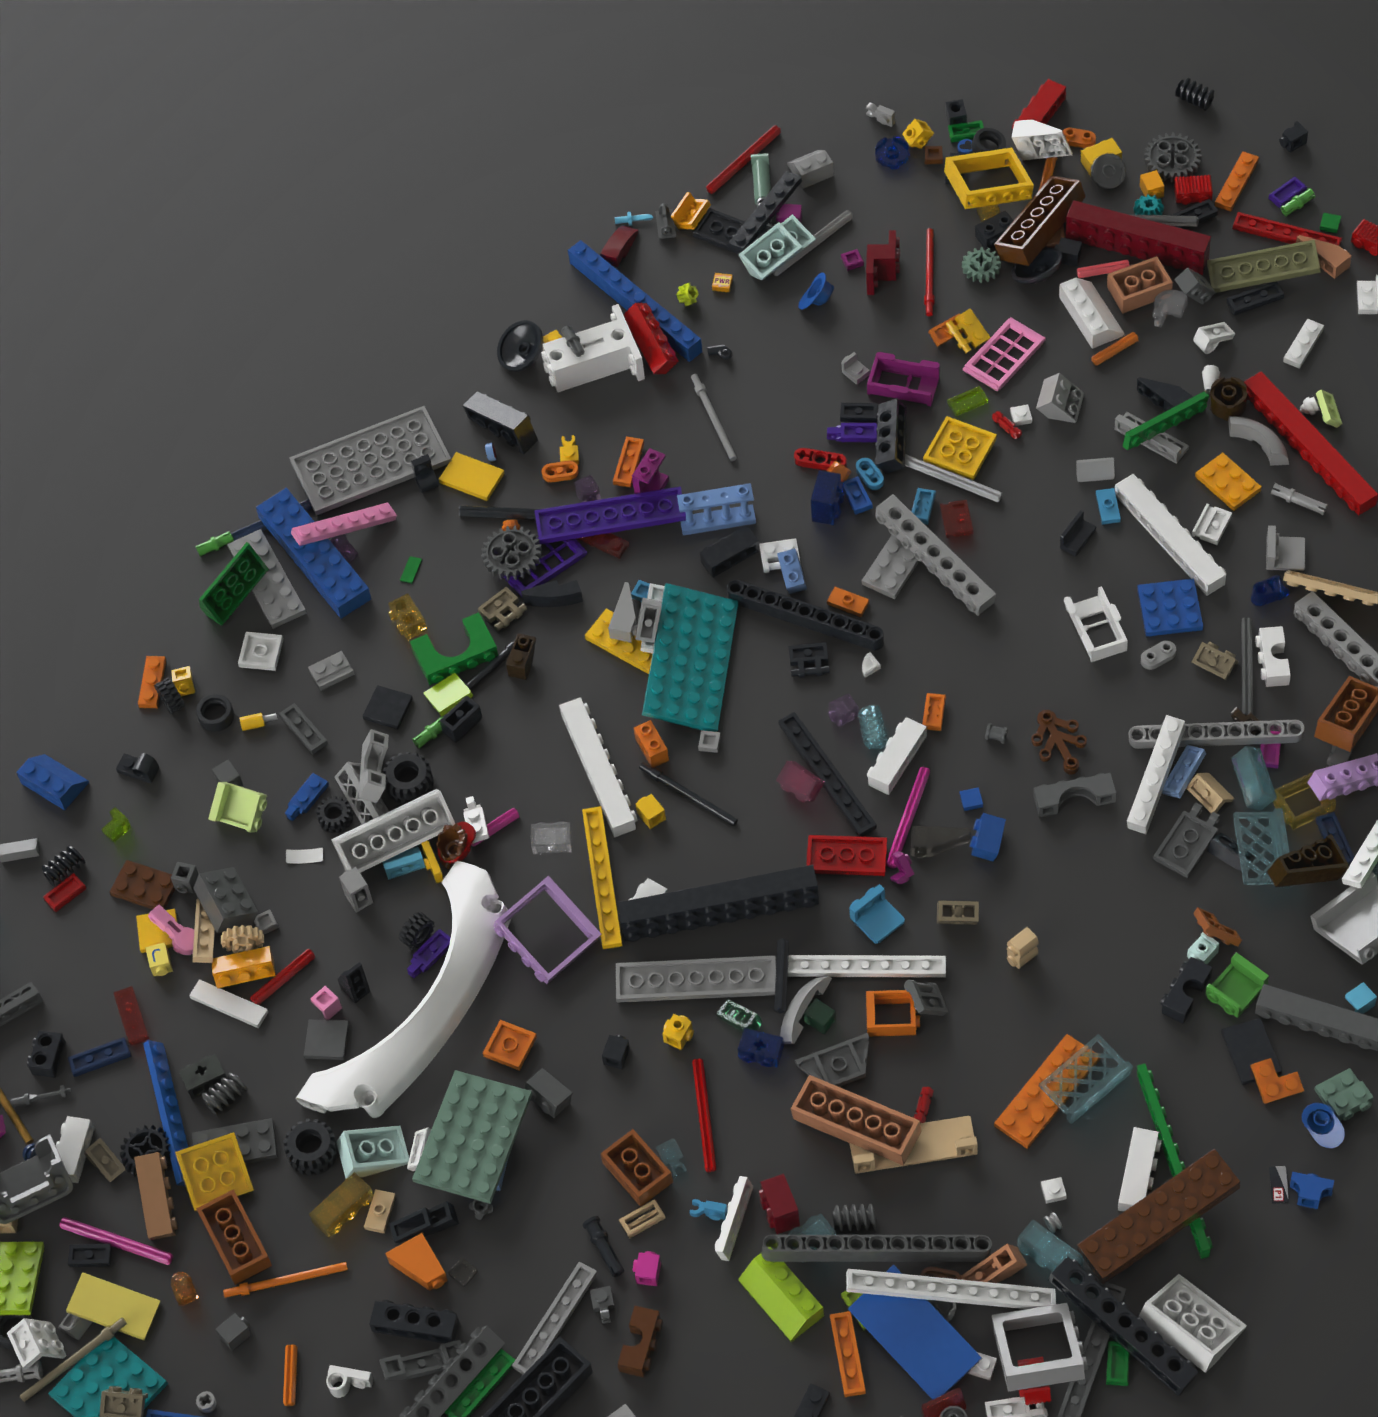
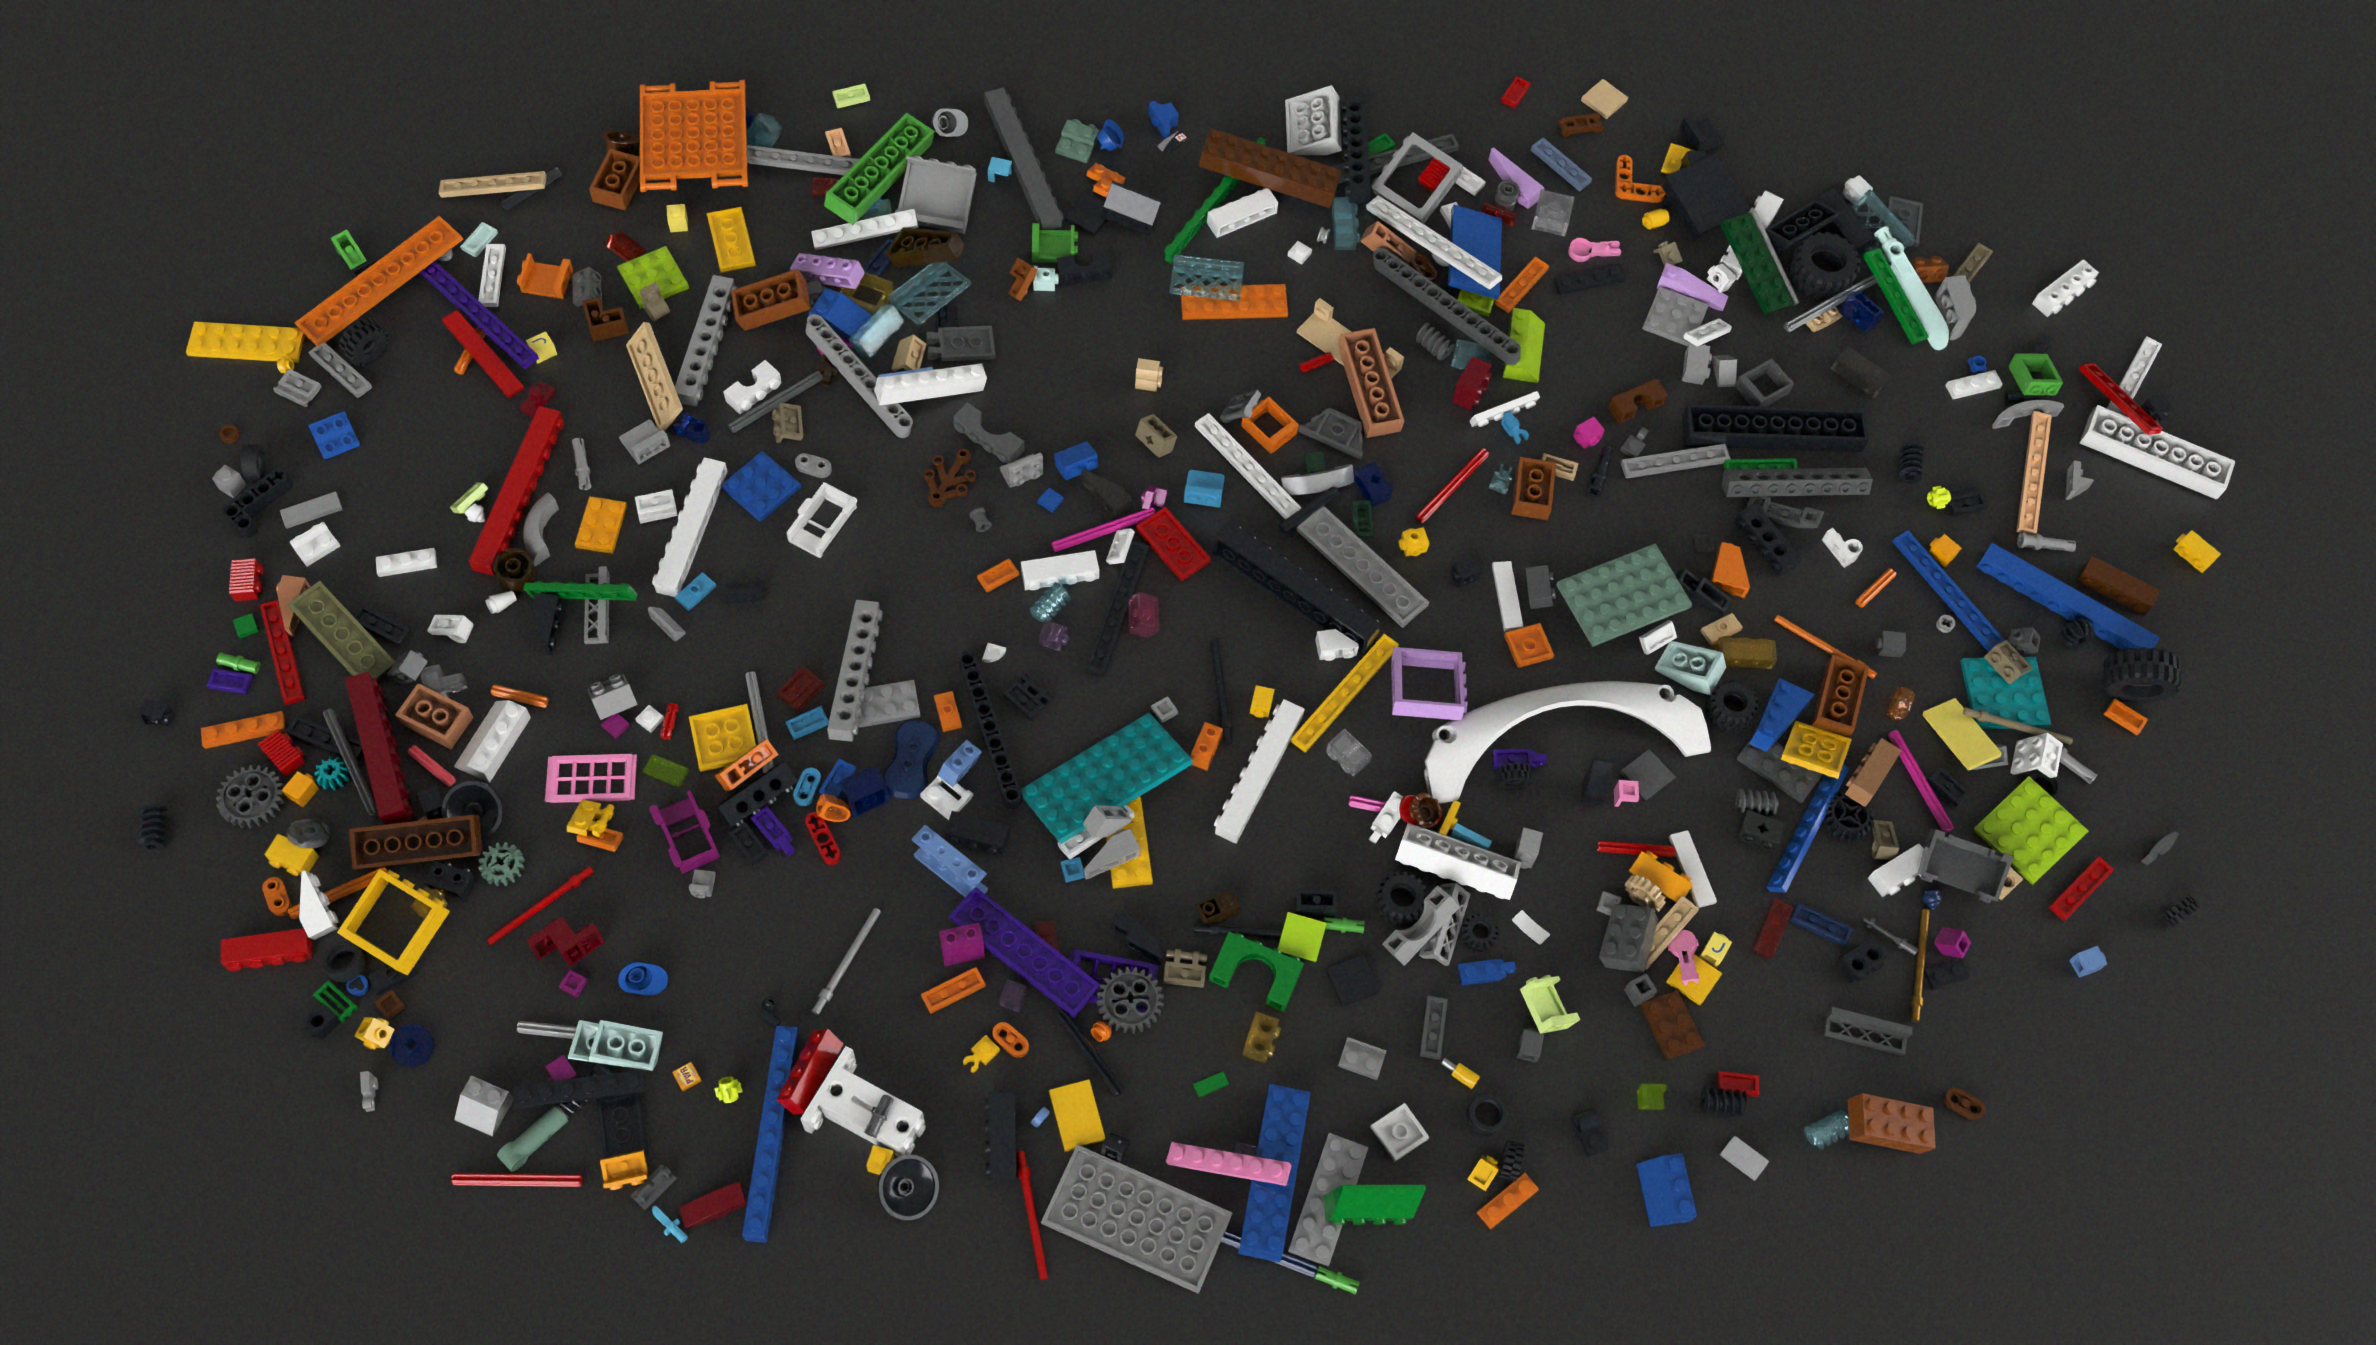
camera: 145 degrees left, 5 degrees up
(269, 1180) = (1780, 711): none -> blue wedge
(464, 420) = (1024, 1174): none -> red bar
(567, 1070) = (1507, 595): none -> white tile
(838, 563) = (914, 746): none -> dark blue plate
(879, 814) = (1120, 546): none -> white plate
(919, 437) = (746, 765): none -> orange slope
(1016, 795) = (1023, 469): none -> light grey bracket
(1033, 391) = (615, 725): none -> magenta tile
(1216, 1068) = (1131, 208): none -> slope
(1295, 760) = (840, 313): none -> blue slope

